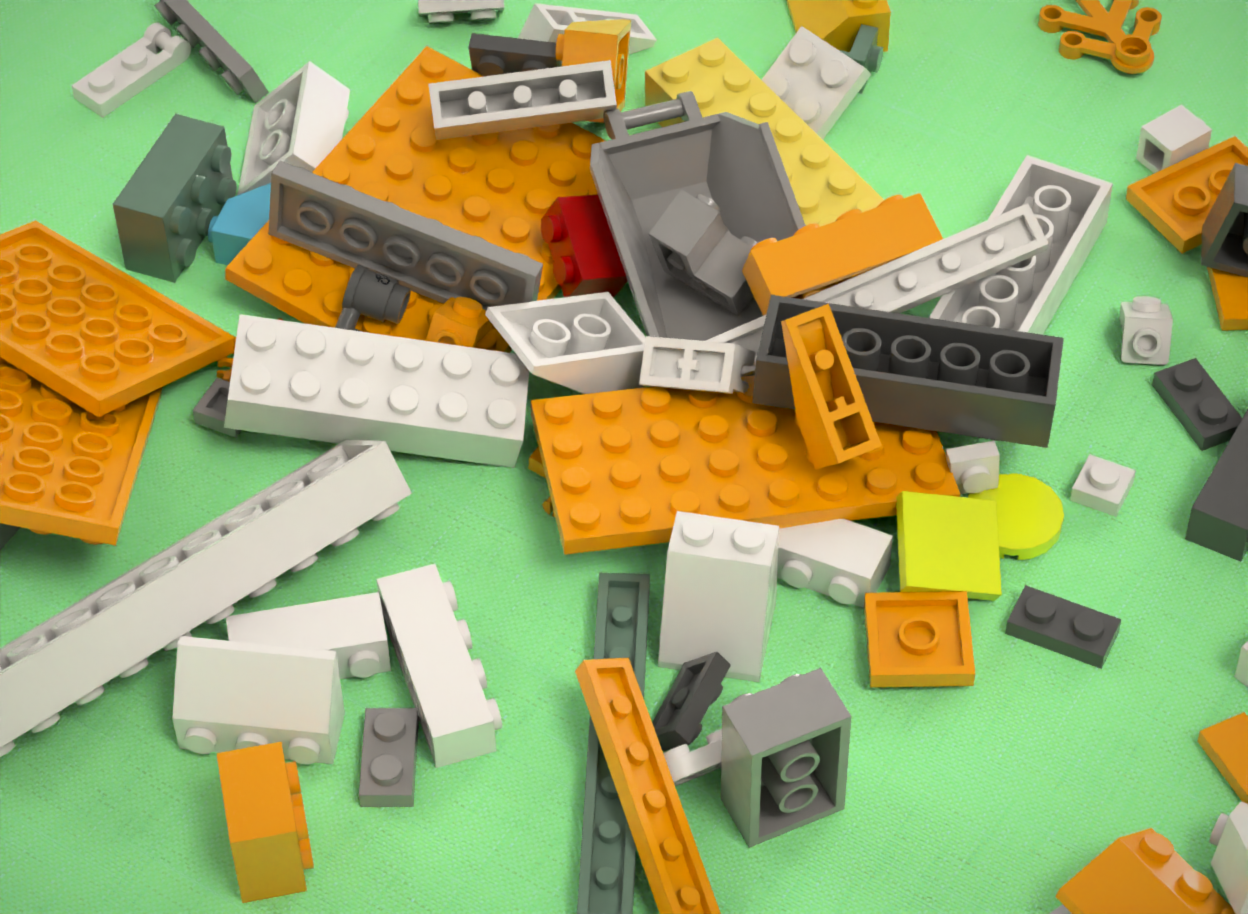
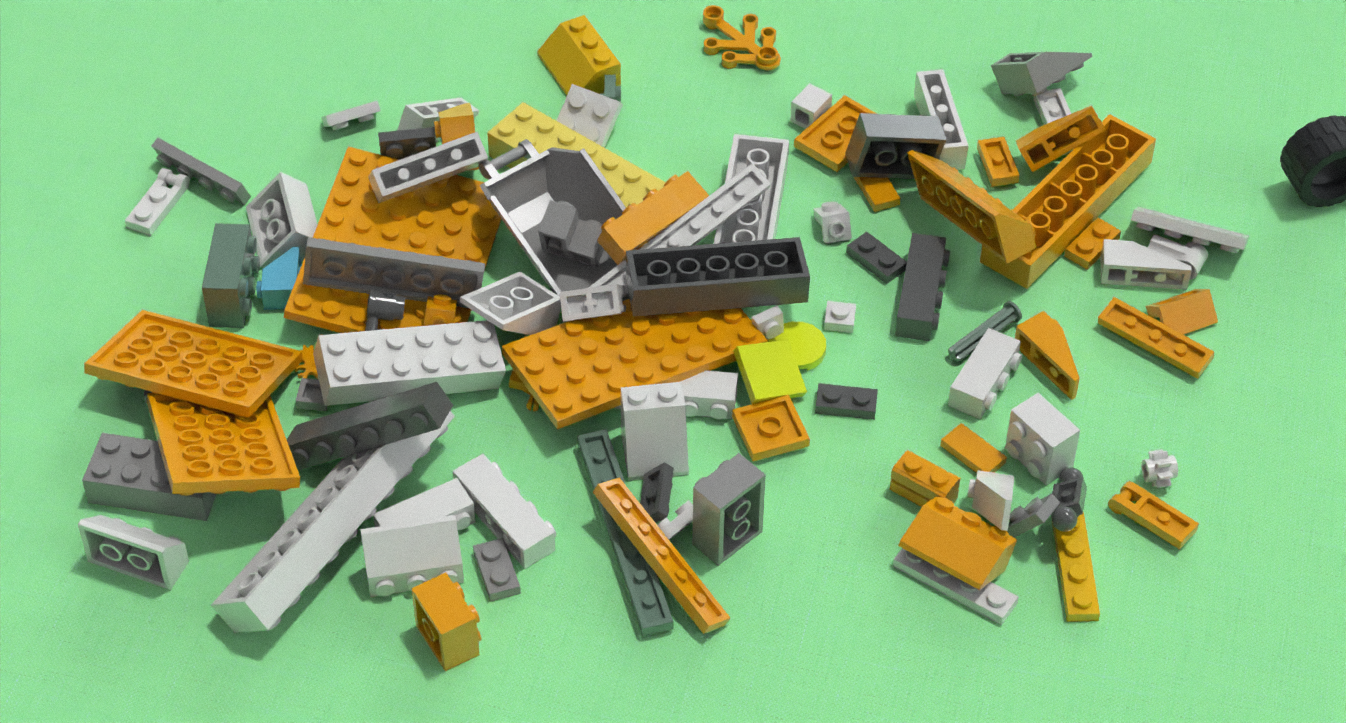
camera: 20 degrees left, 0 degrees up
(262, 474) = (369, 425): none -> dark grey brick
(582, 247) = (495, 246): red brick -> none
(826, 390) = (681, 299): light orange slope -> none
(1141, 794) = (922, 480): none -> light orange brick

